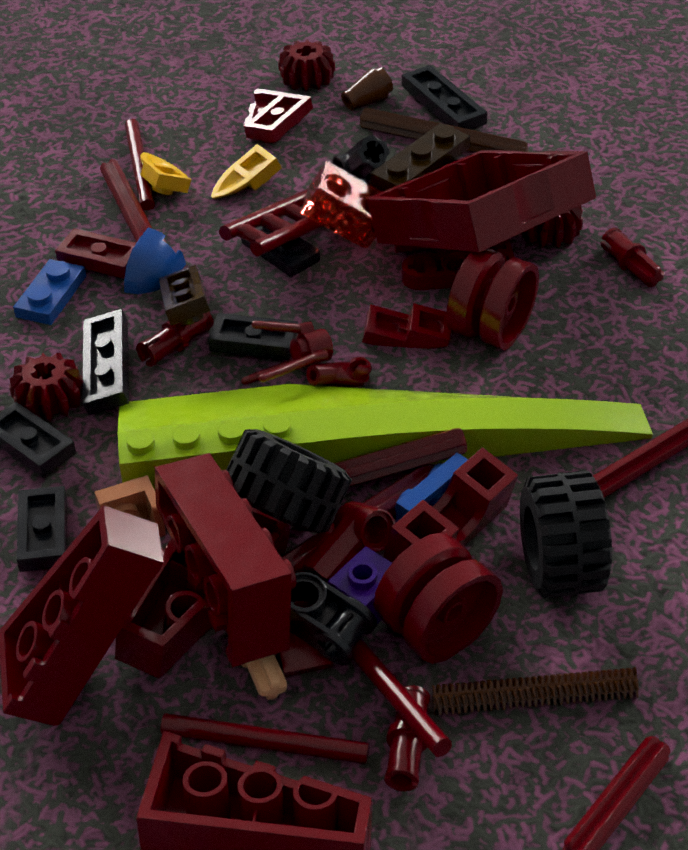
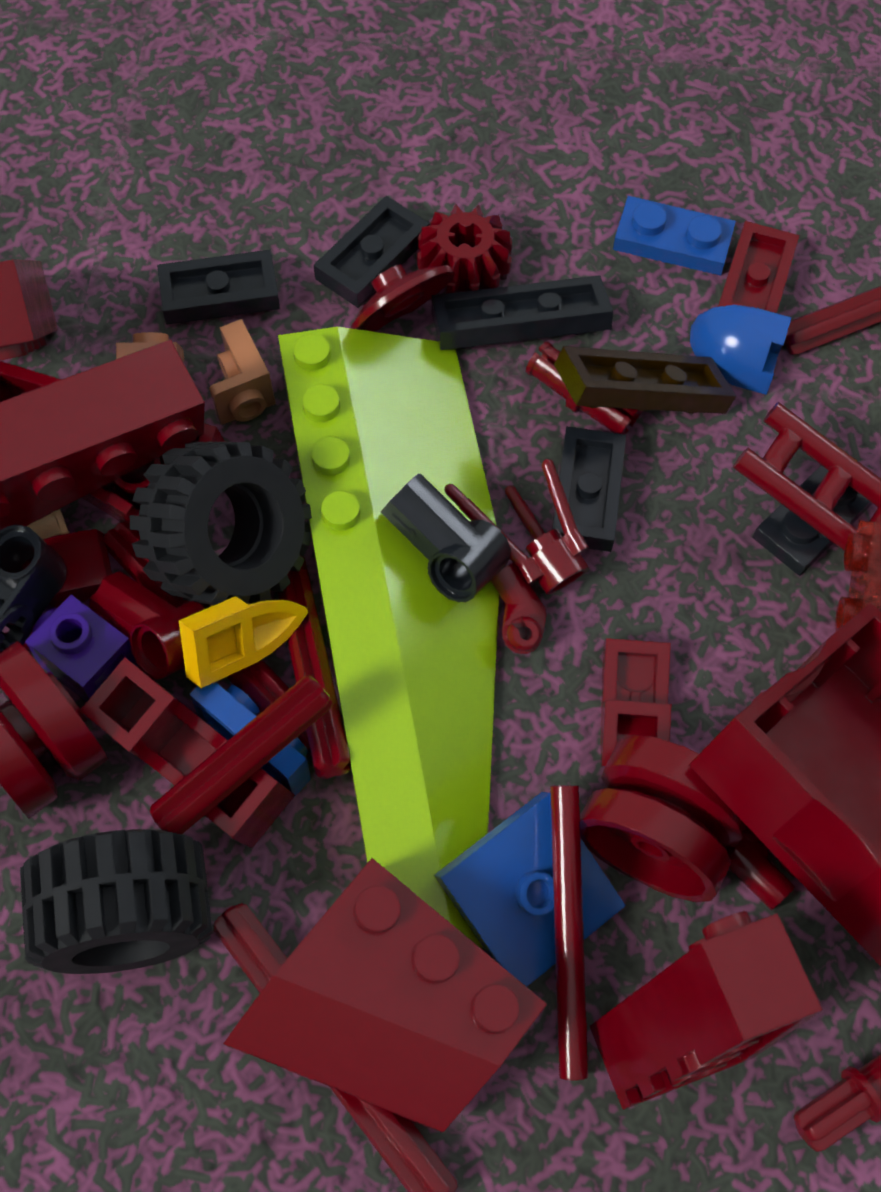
camera: 85 degrees right, 20 degrees up
(94, 405) = (400, 294): none -> dark red dish
(299, 380) = (459, 552): none -> black piece
(374, 484) = (235, 636): none -> yellow plate
(470, 456) = (241, 756): none -> dark red axle
(533, 366) = (508, 892): none -> blue plate
(558, 343) = (569, 932): none -> dark red bar
(610, 409) = (389, 1005): none -> dark red wedge
(614, 265) = (706, 1010): none -> dark red wedge

